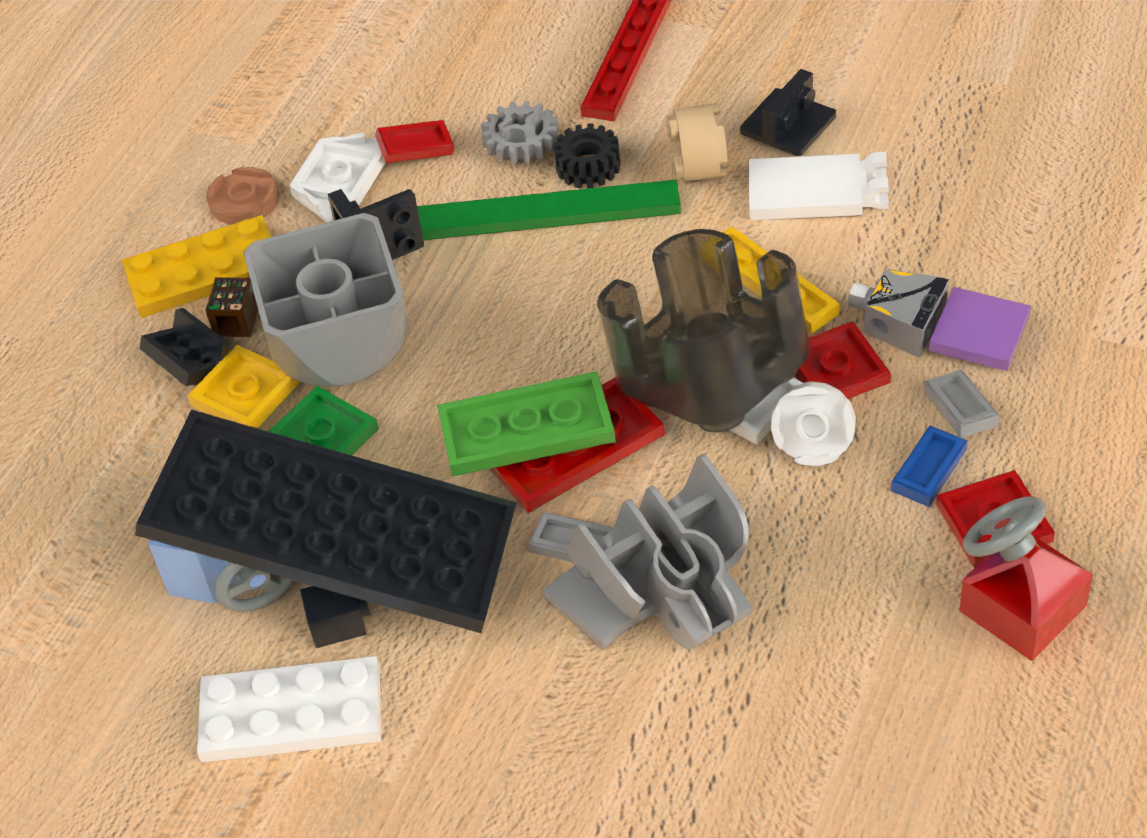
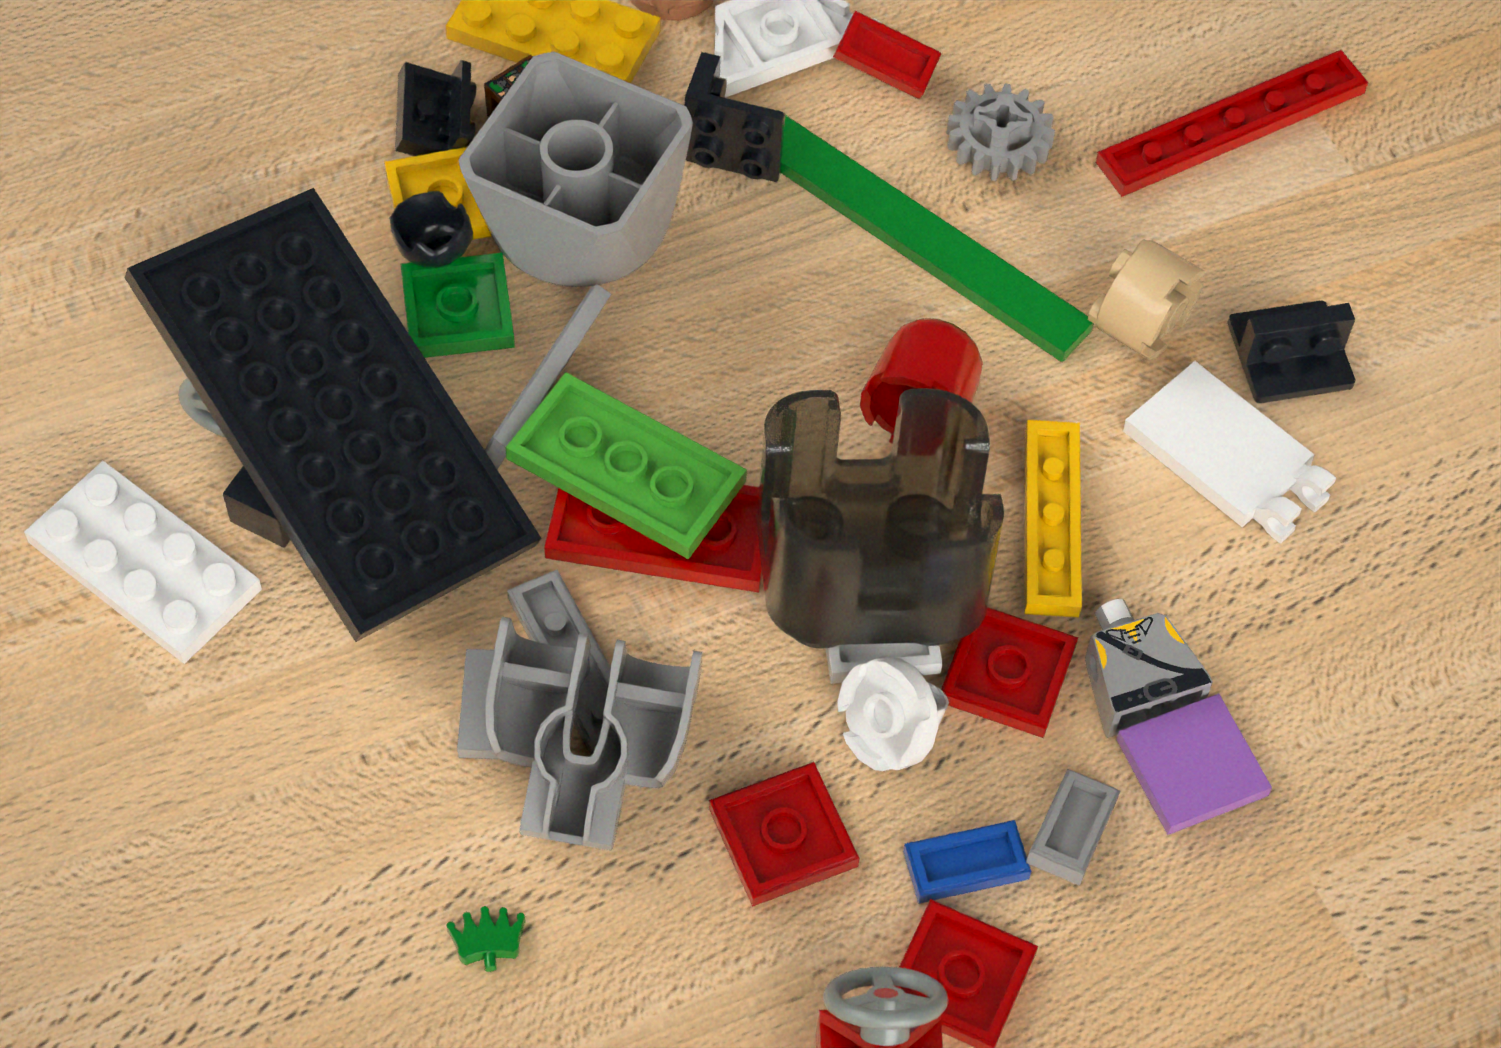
camera: 35 degrees right, 10 degrees up
(268, 400) = (430, 230): none -> black hair
(418, 419) = (547, 372): none -> light grey tile
(587, 142) = (1043, 194): black tyre -> none
(625, 253) = (919, 356): none -> red cylinder
(734, 719) = (487, 940): none -> green piece
(823, 532) = (783, 834): none -> red tile

